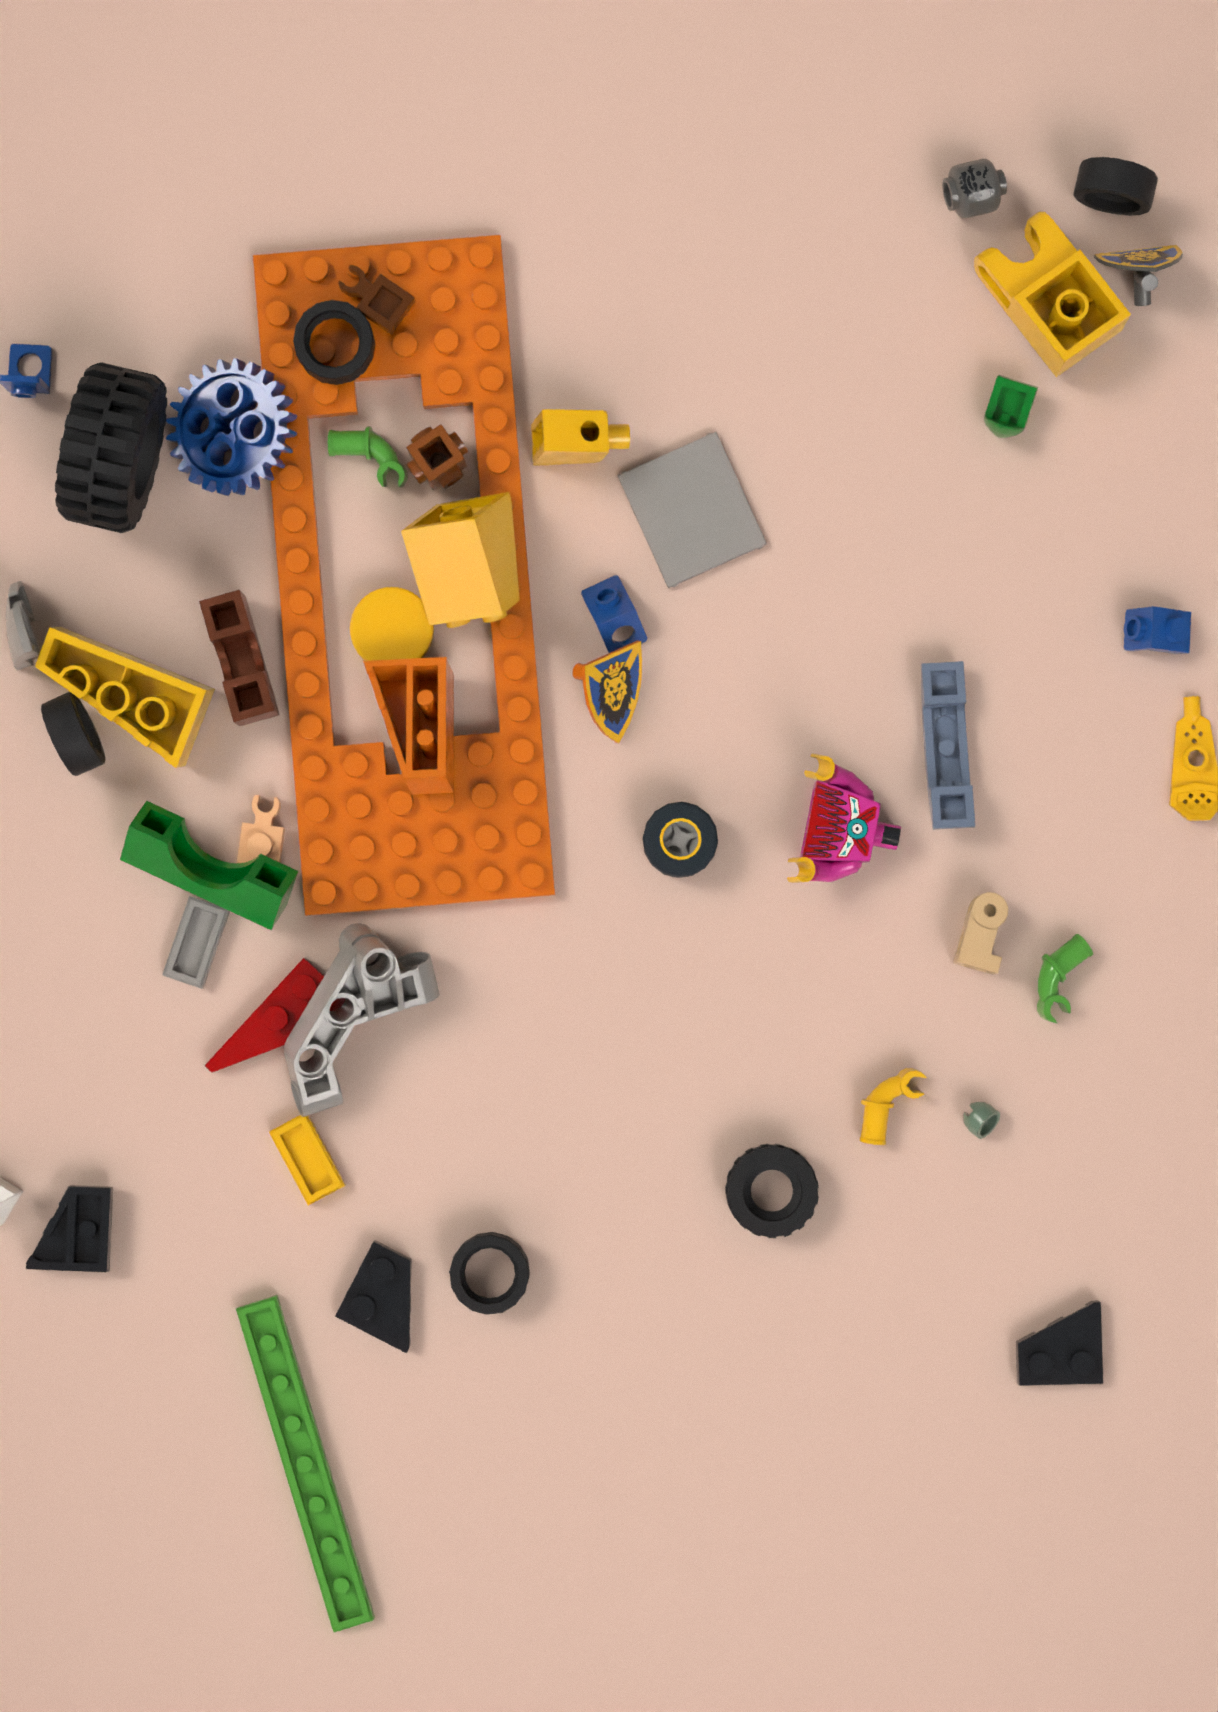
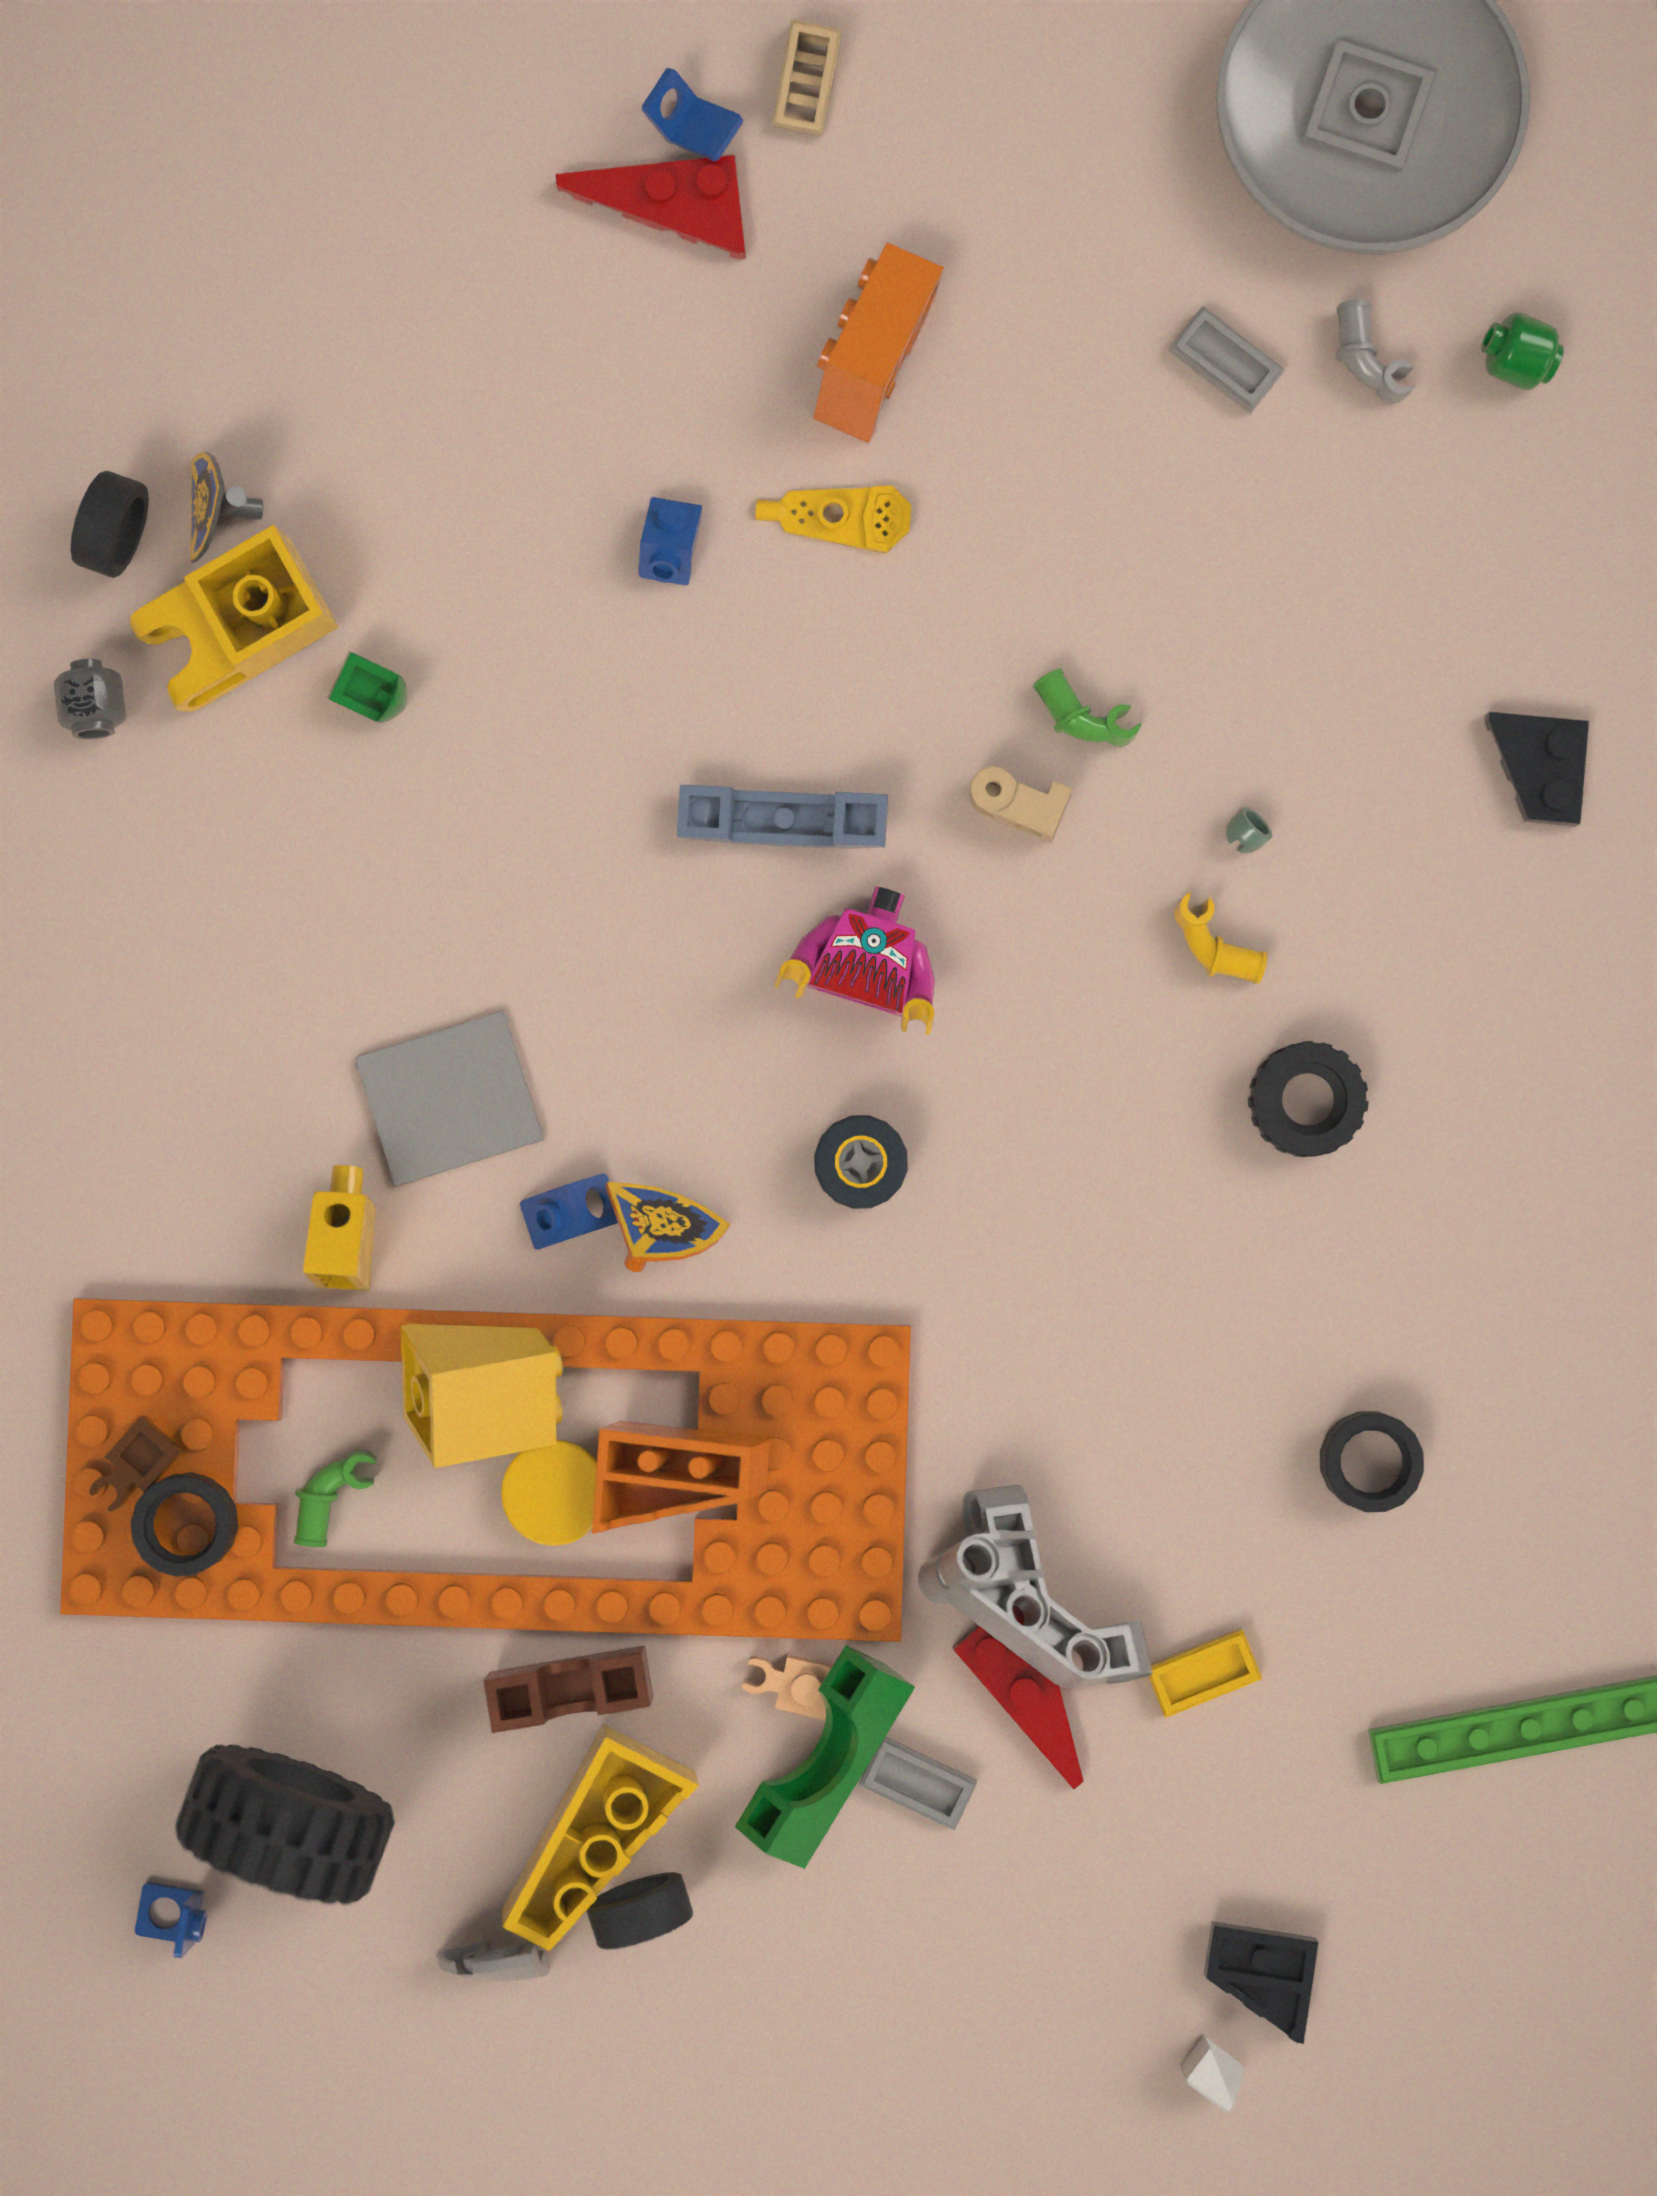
camera: 85 degrees left, 0 degrees up
(231, 427) = (275, 1666): blue gear -> none
(381, 1297) = (1385, 1599): black wing -> none
(432, 443) = (326, 1414): dark orange brick -> none

